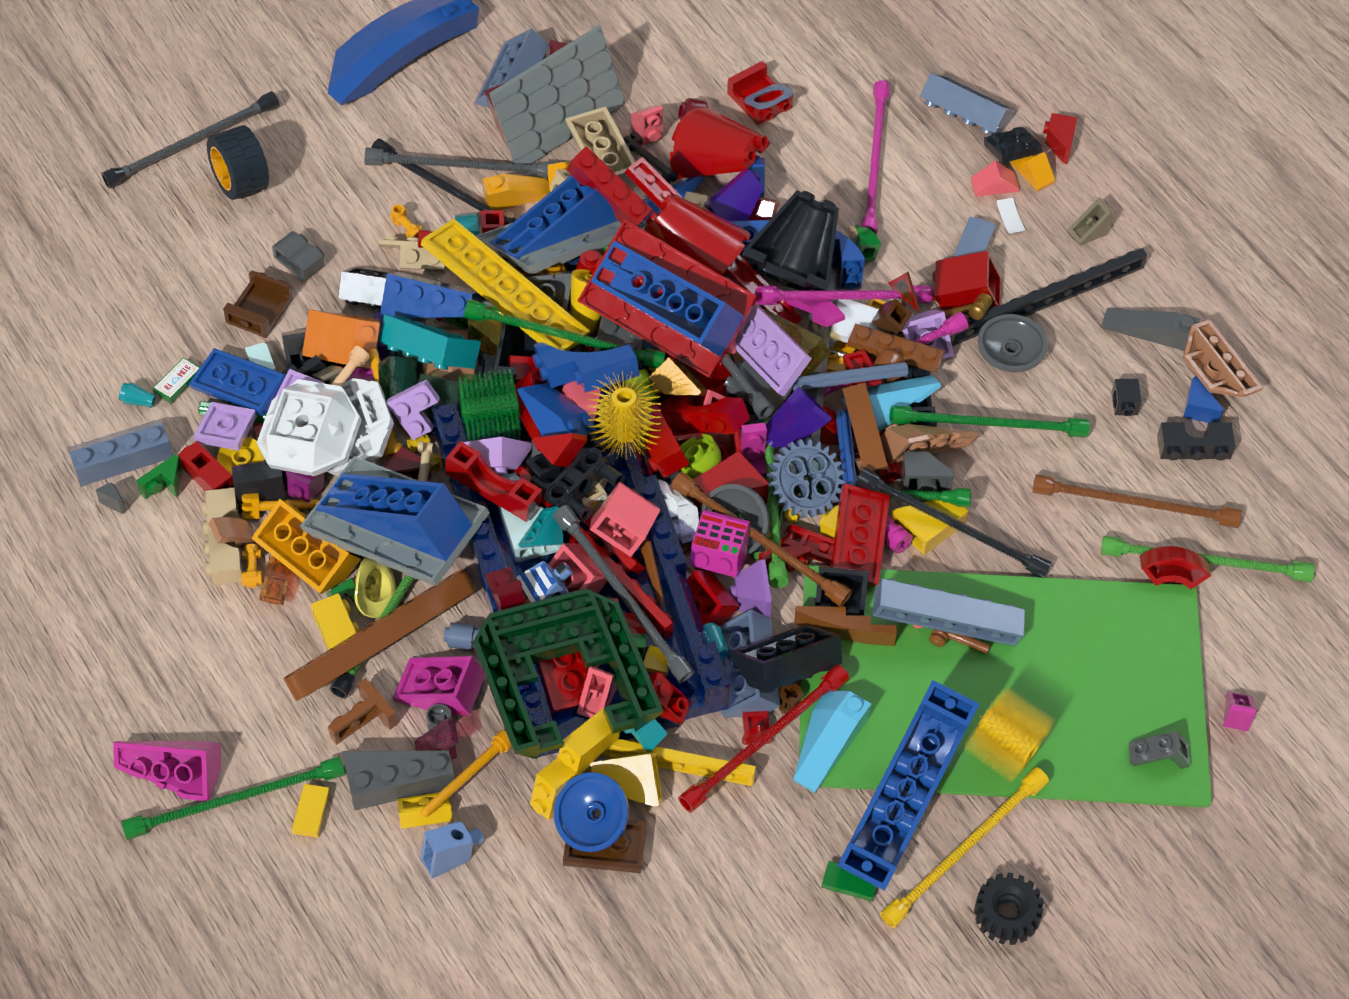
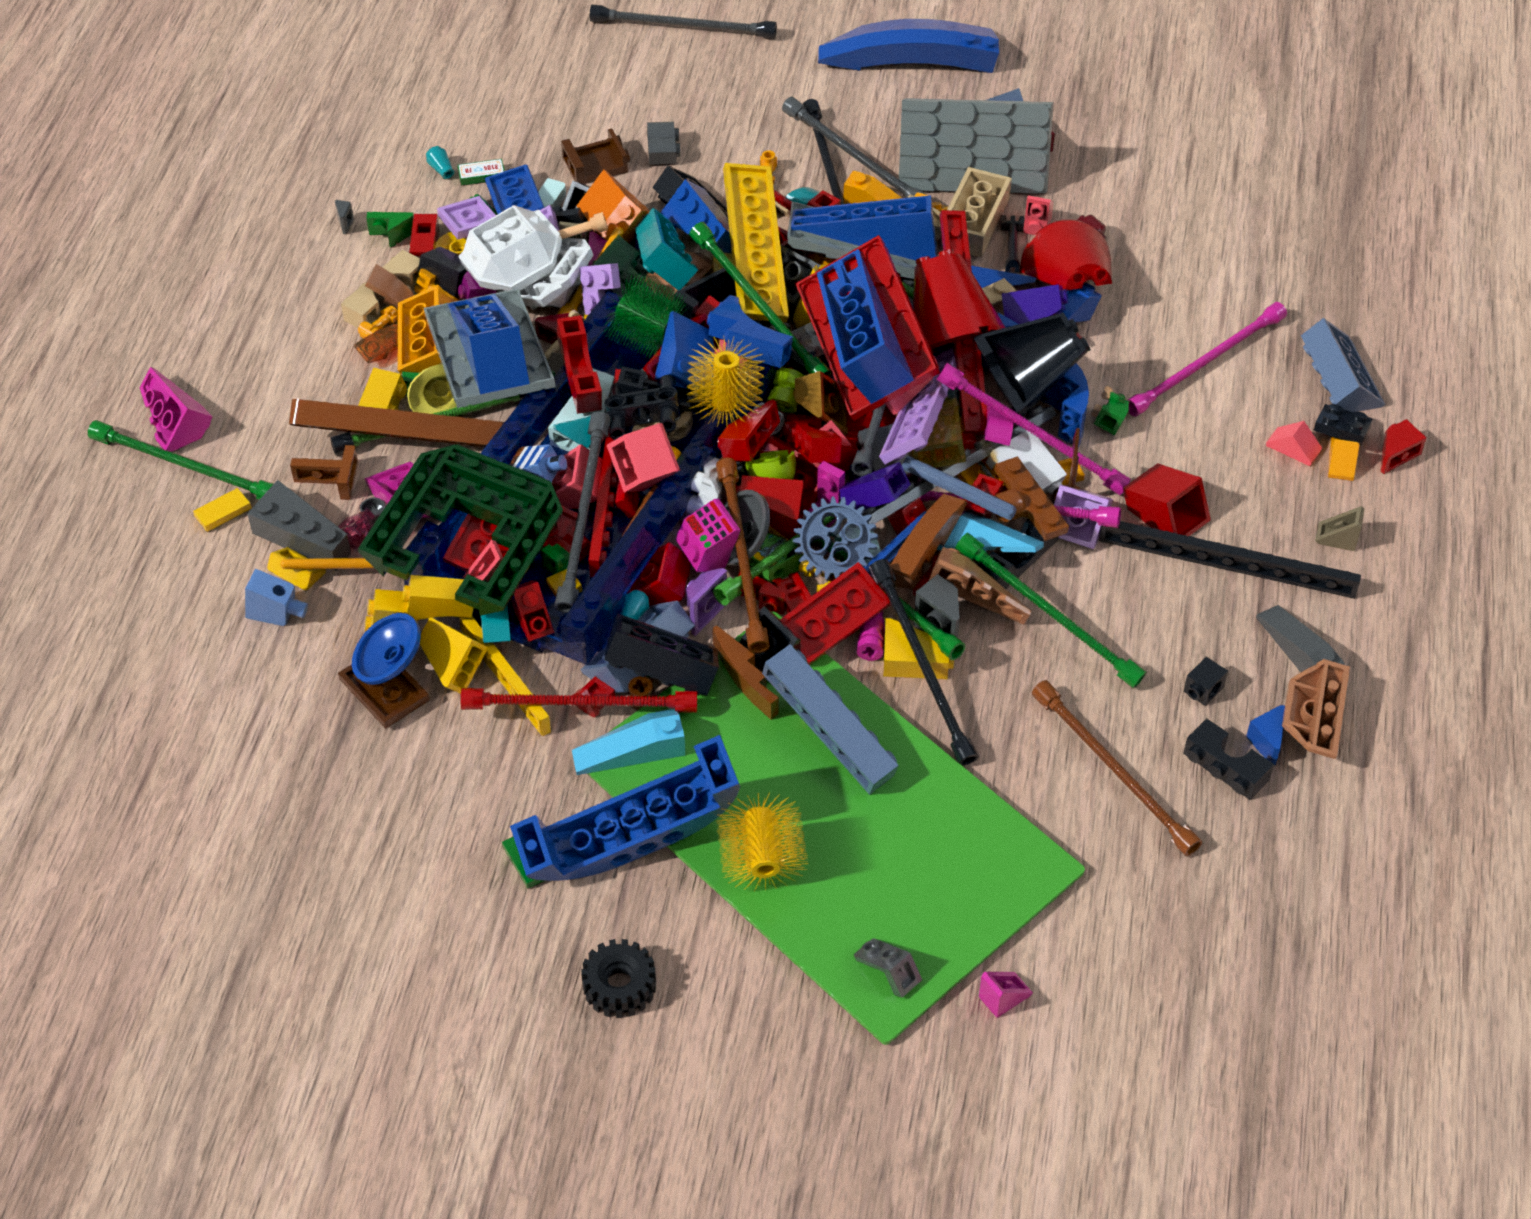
camera: 45 degrees right, 5 degrees down
(120, 452) = (383, 190): sand blue slope -> none
(238, 162) = (685, 49): black wheel -> none
(501, 452) = (612, 352): lavender slope -> none
(505, 589) = (498, 442): dark red slope -> none
(560, 448) = (652, 373): red slope -> none
(593, 172) = (915, 216): red arch -> none
(751, 81) = (1163, 250): red panel -> none
(787, 93) = (1182, 259): sand blue piece -> none
(891, 317) = (1054, 472): reddish brown brick -> none
(897, 910) = (533, 907): yellow hose -> none
(939, 639) = (810, 739): dark orange piece -> none
(974, 237) = (1221, 473): sand blue piece -> none
(975, 310) = (1144, 519): pearl gold piece -> none
(1010, 215) = (1278, 478): white sticker -> none
(1015, 335) = (1148, 568): dark grey dish -> none
(1176, 565) = (1080, 835): red brick -> none
(1298, 570) = (1197, 928): bright green hose -> none

